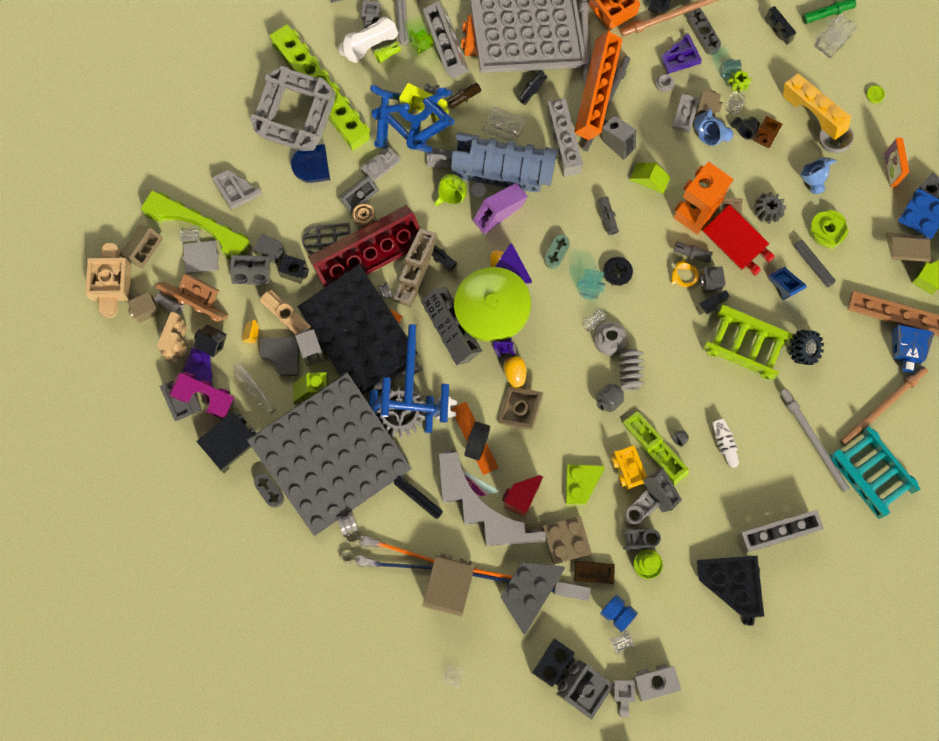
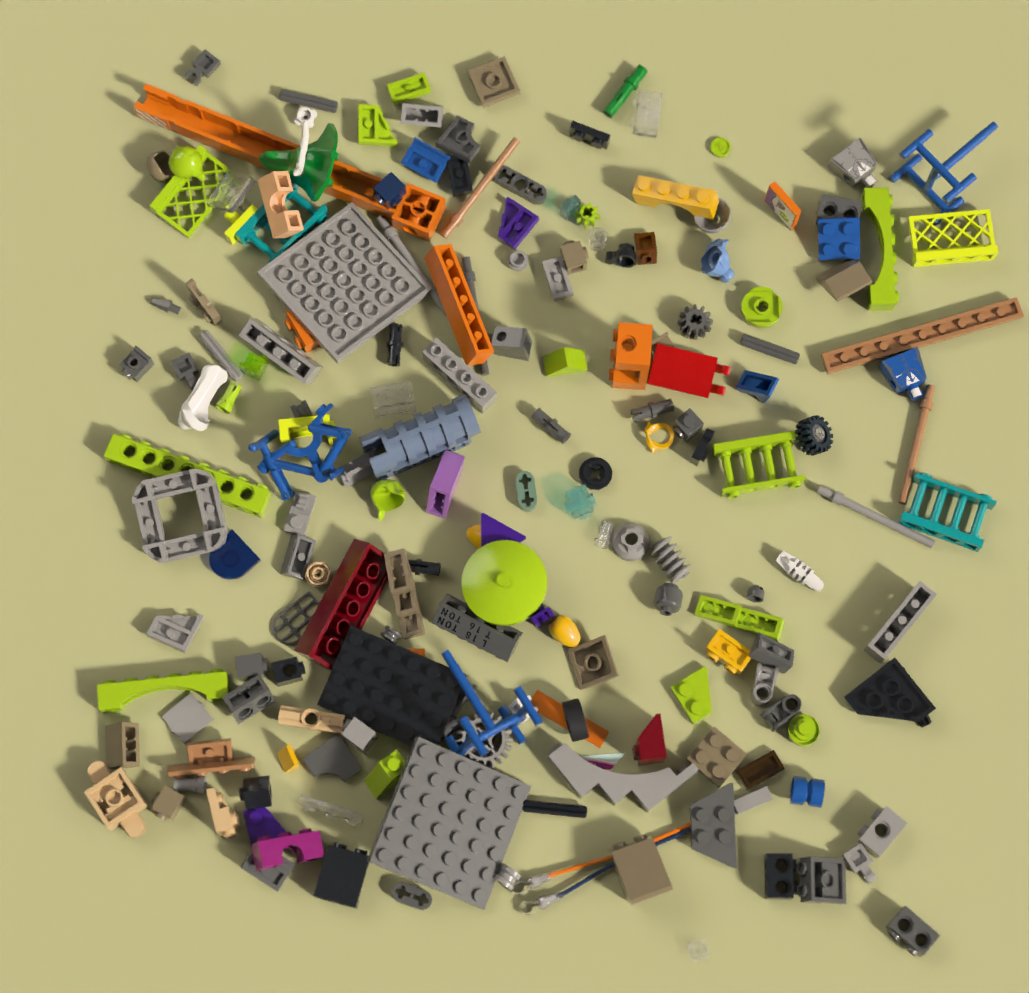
camera: 35 degrees left, 0 degrees up
(190, 234) = (163, 702): clear bush -> none
(463, 95) = (335, 392): dark brown axle -> none
(478, 189) = (410, 478): white sticker -> none
(621, 642) = (826, 816): clear bush -> none
(711, 129) = (592, 280): medium blue hair -> none

